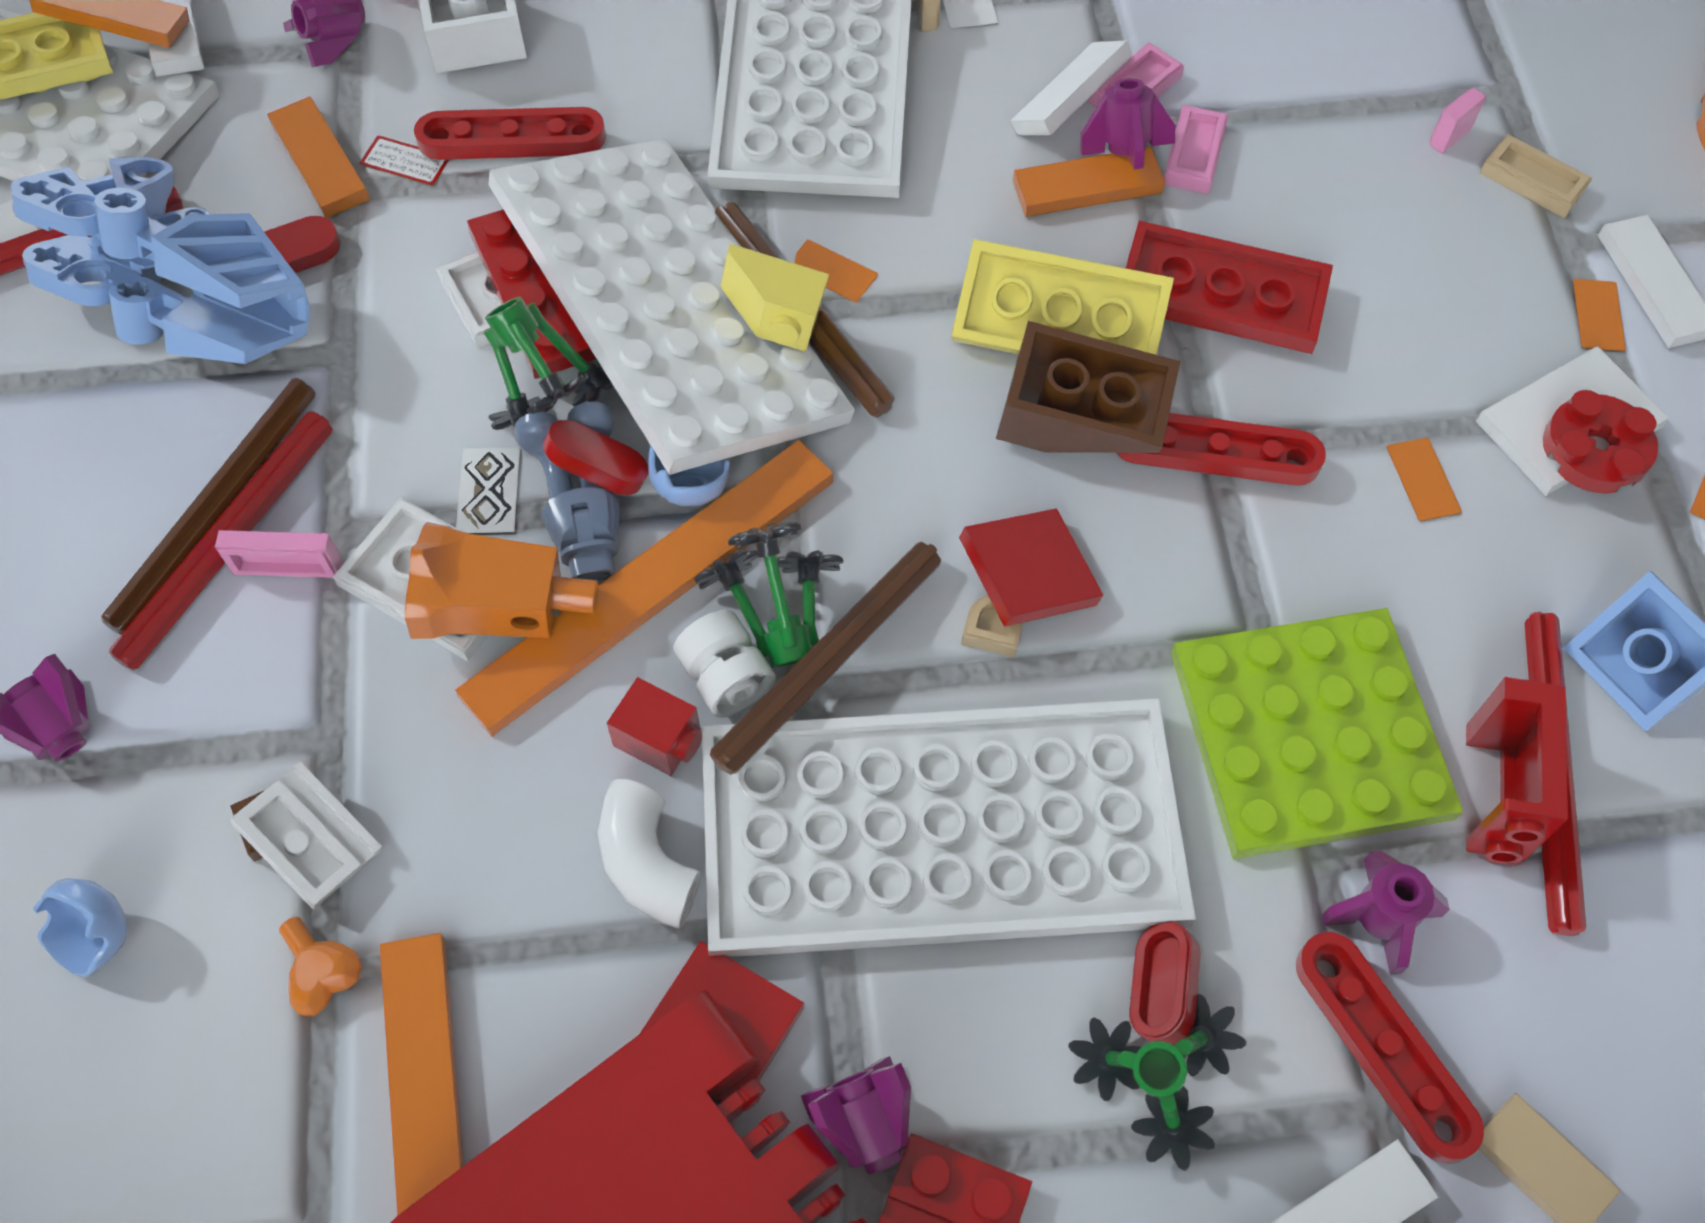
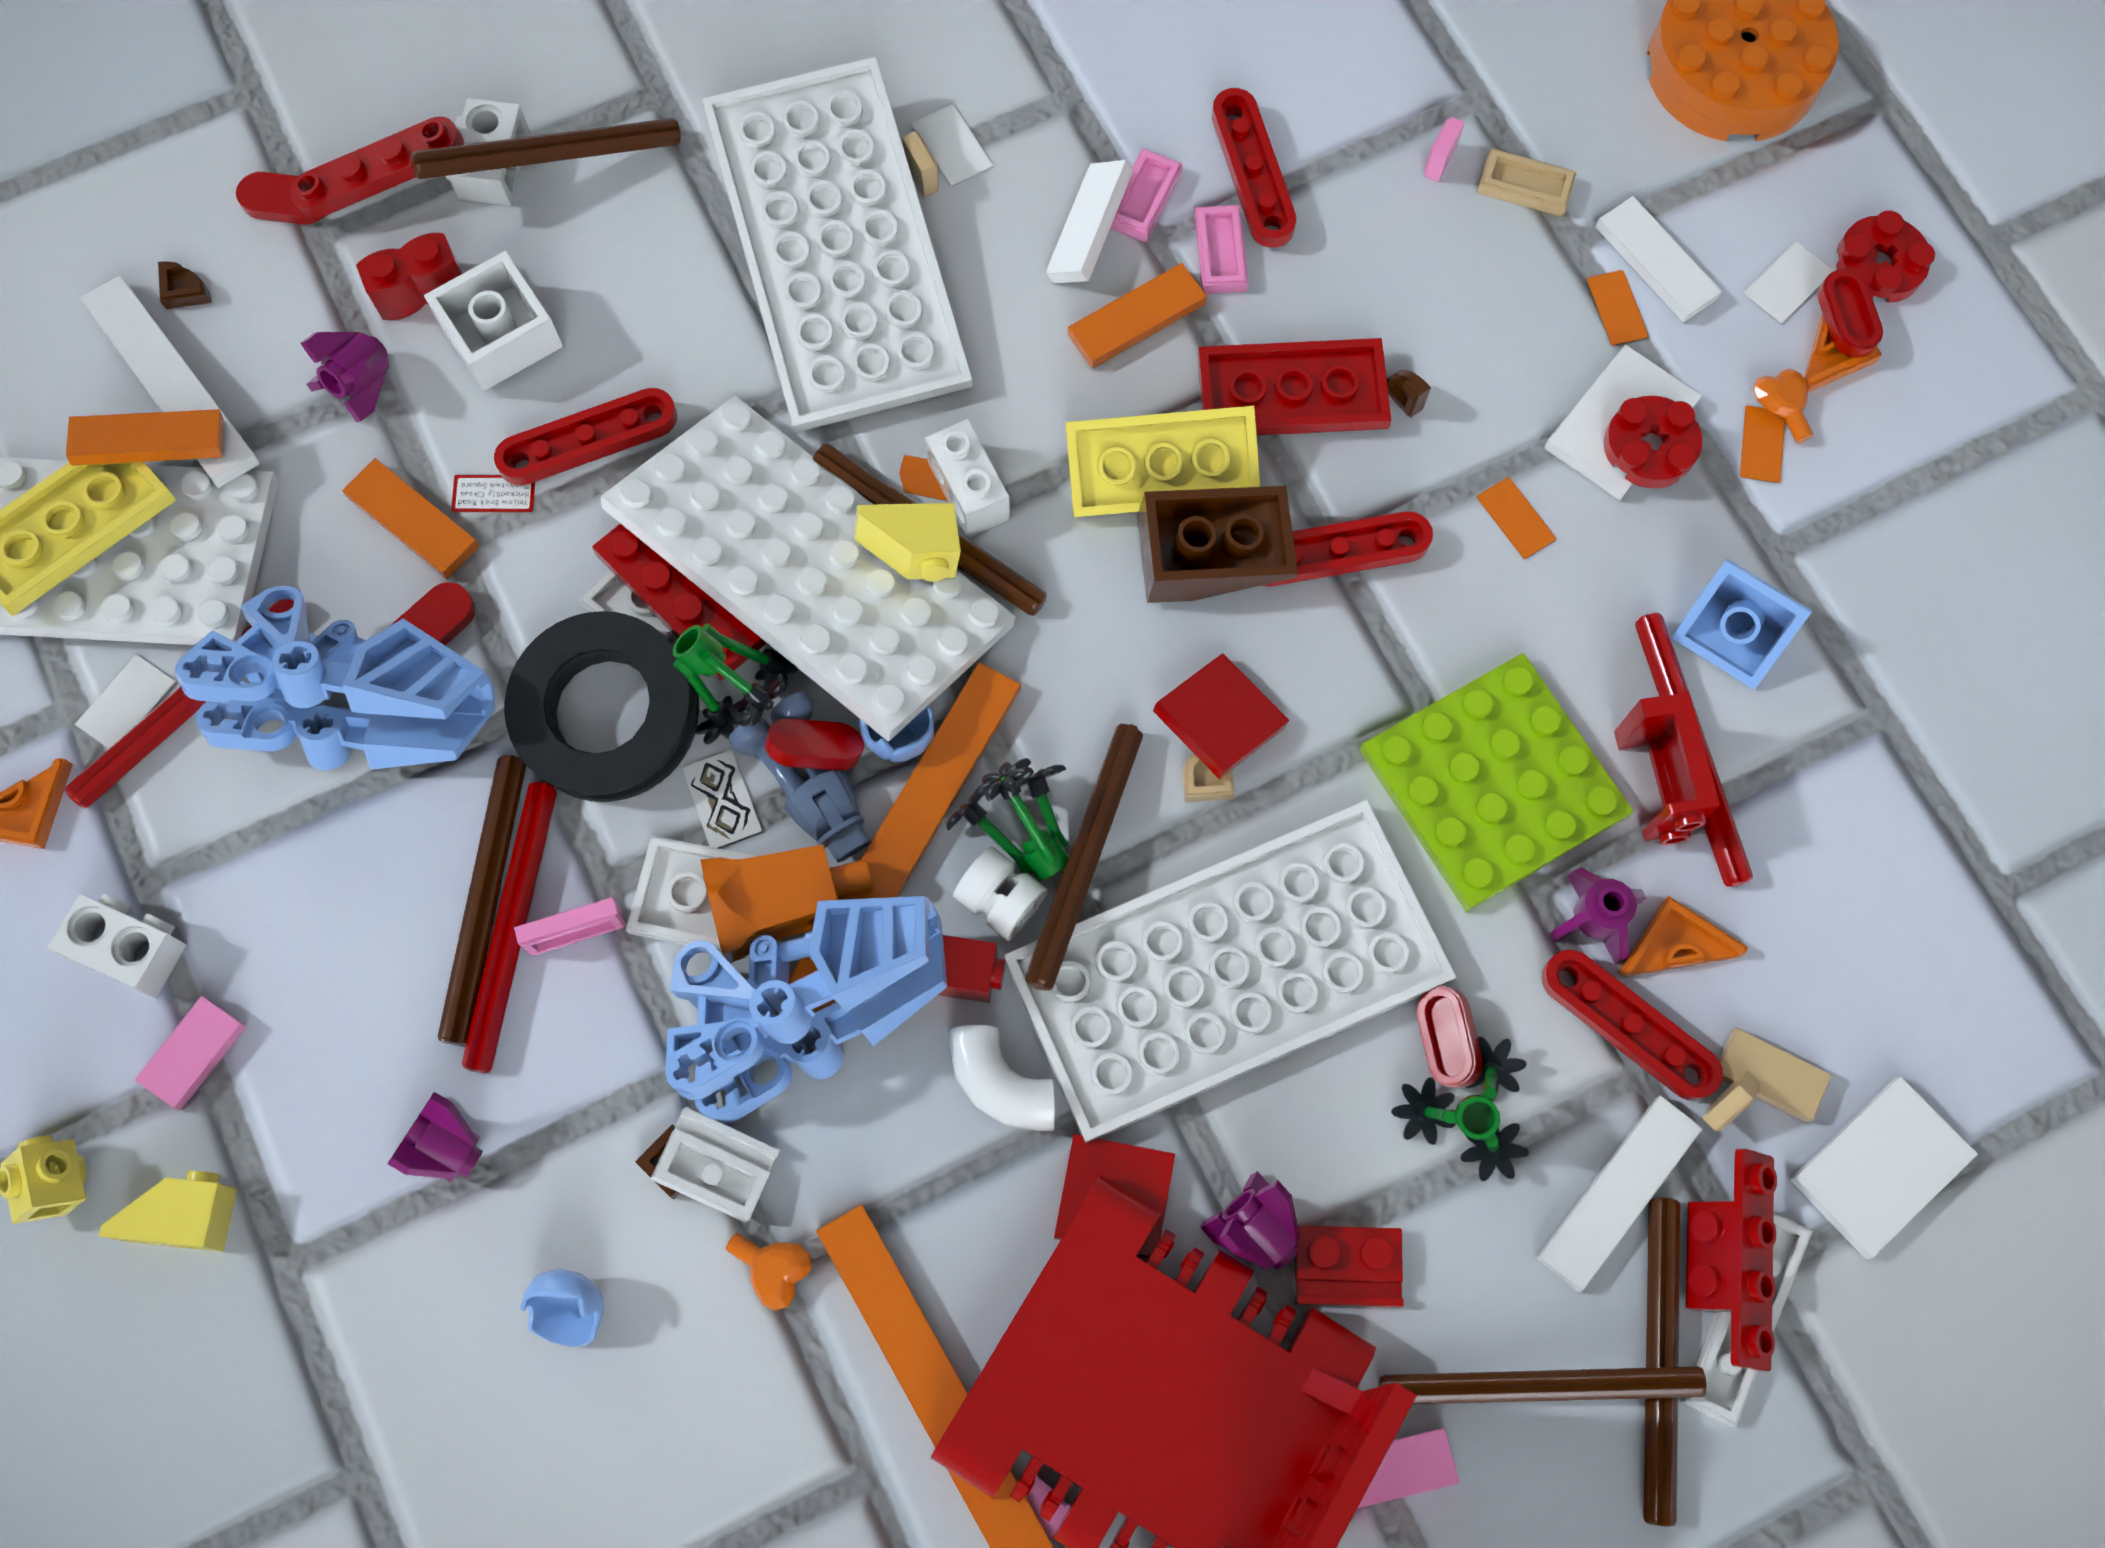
camera: 20 degrees left, 10 degrees up
(371, 316) = (548, 668): none -> black tyre
(554, 661) = (871, 956): none -> light blue piece
(857, 269) = (967, 478): none -> white brick
(1127, 120) = (1156, 250): magenta brick -> none
(1254, 87) = (1253, 167): none -> red plate
(1345, 324) = (1408, 391): none -> reddish brown tile
(1475, 971) = (1678, 940): none -> orange tile
(1484, 1175) = (1732, 1101): none -> tan tile

